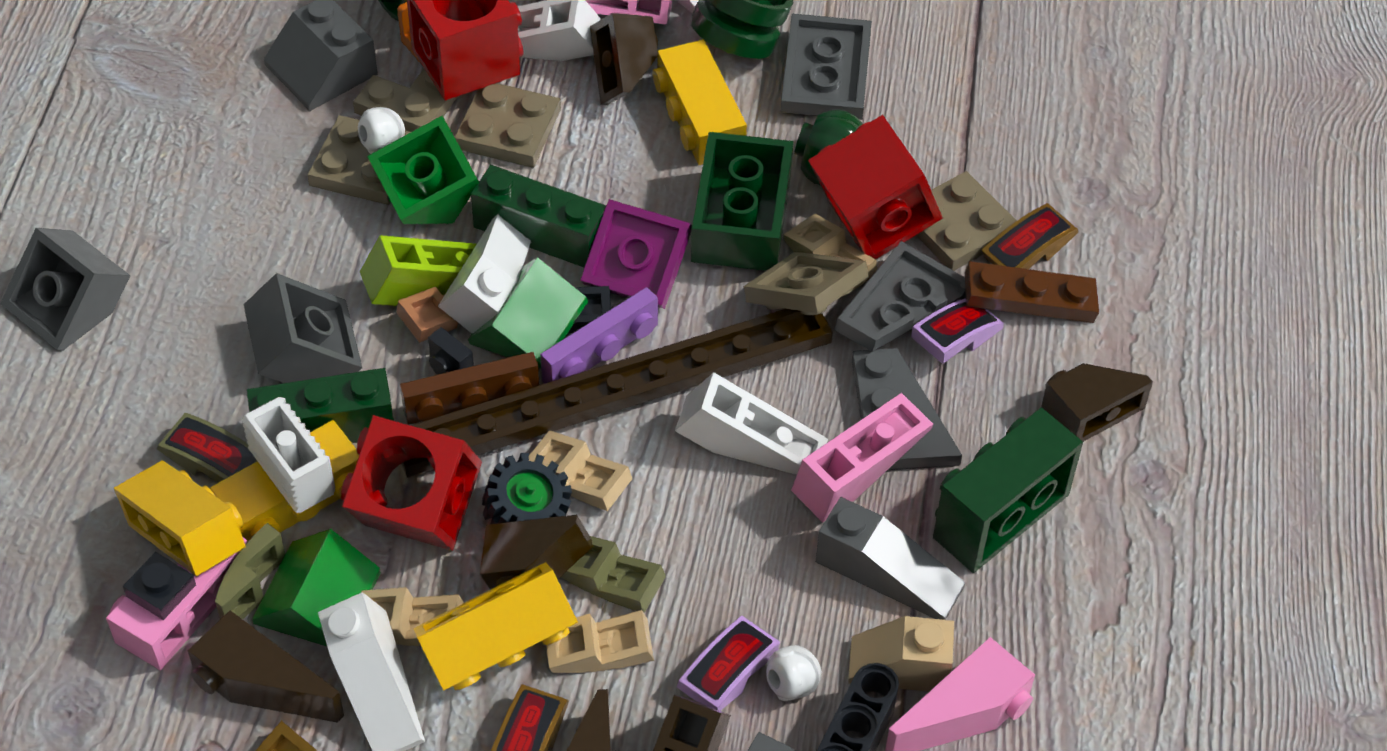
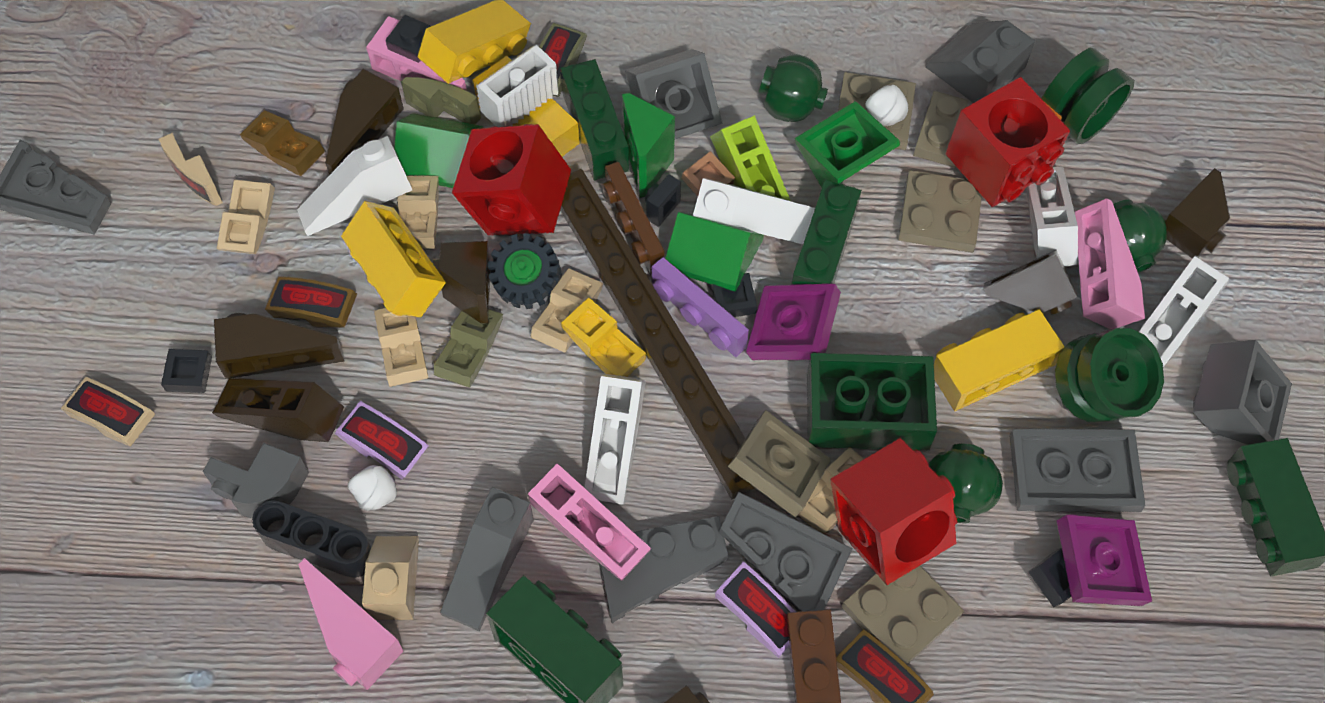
camera: 85 degrees right, 10 degrees up
(320, 215) = (793, 88): none -> dark green plant
(380, 340) = (649, 140): none -> green slope
(629, 435) = (601, 340): none -> yellow slope
(926, 58) = (1103, 560): none -> magenta plate
(937, 96) = (1052, 578): none -> black plate

